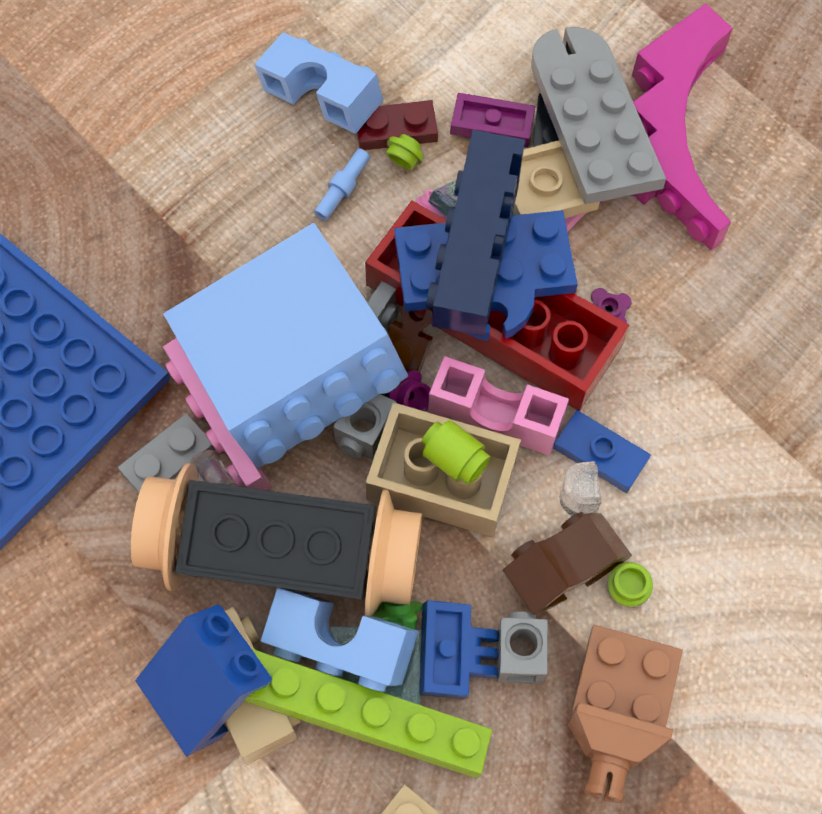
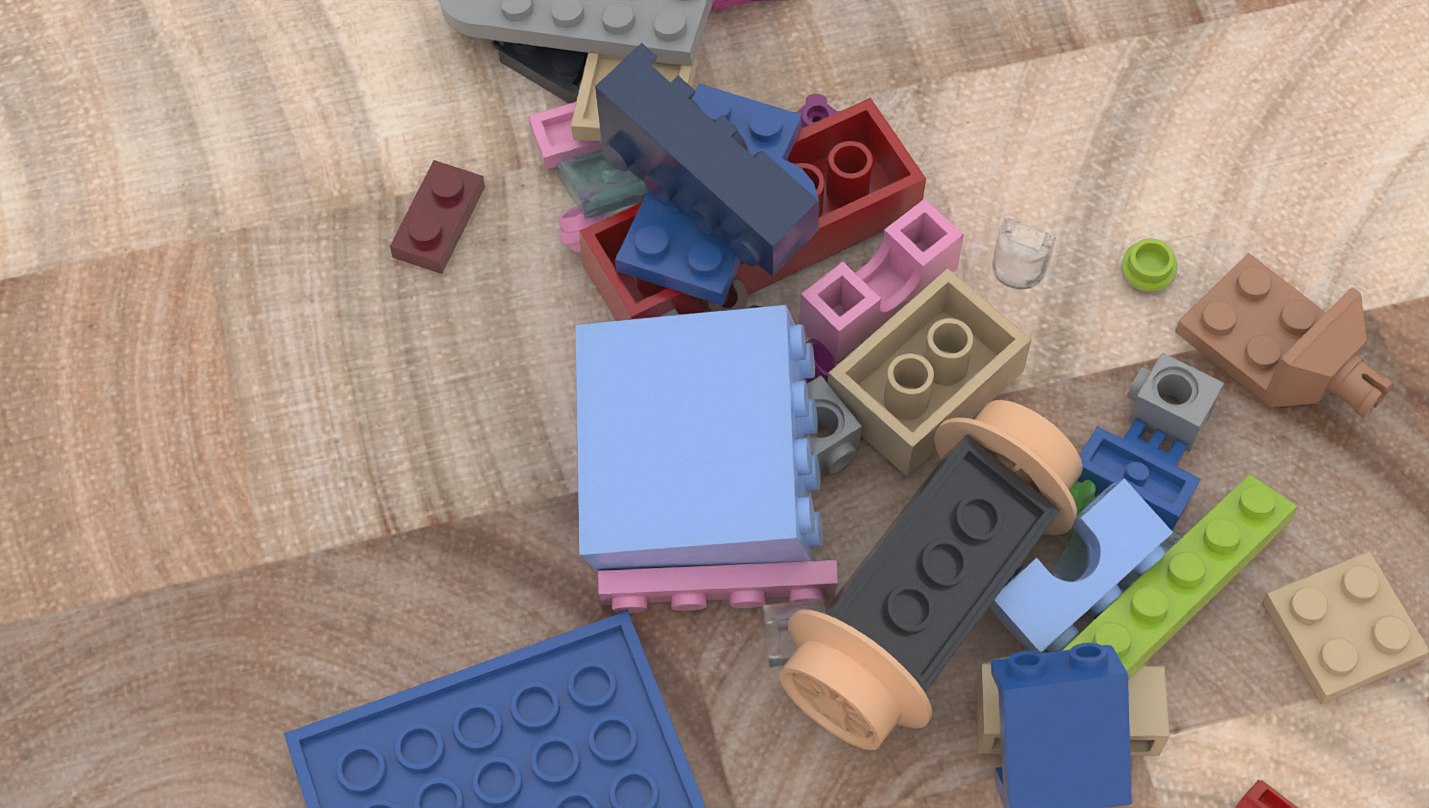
camera: 60 degrees left, 5 degrees down
(166, 453) = (732, 671): light grey plate -> none
(342, 184) = (483, 310): light blue bar -> none
(345, 92) = (294, 273): light blue arch -> none
(404, 151) = (485, 221): lime plate -> none
(455, 451) = (937, 330): lime brick -> none
(492, 116) = (501, 112): magenta plate -> none
(575, 556) = (1098, 307): reddish brown brick -> none
(615, 457) = (983, 208): blue plate -> none

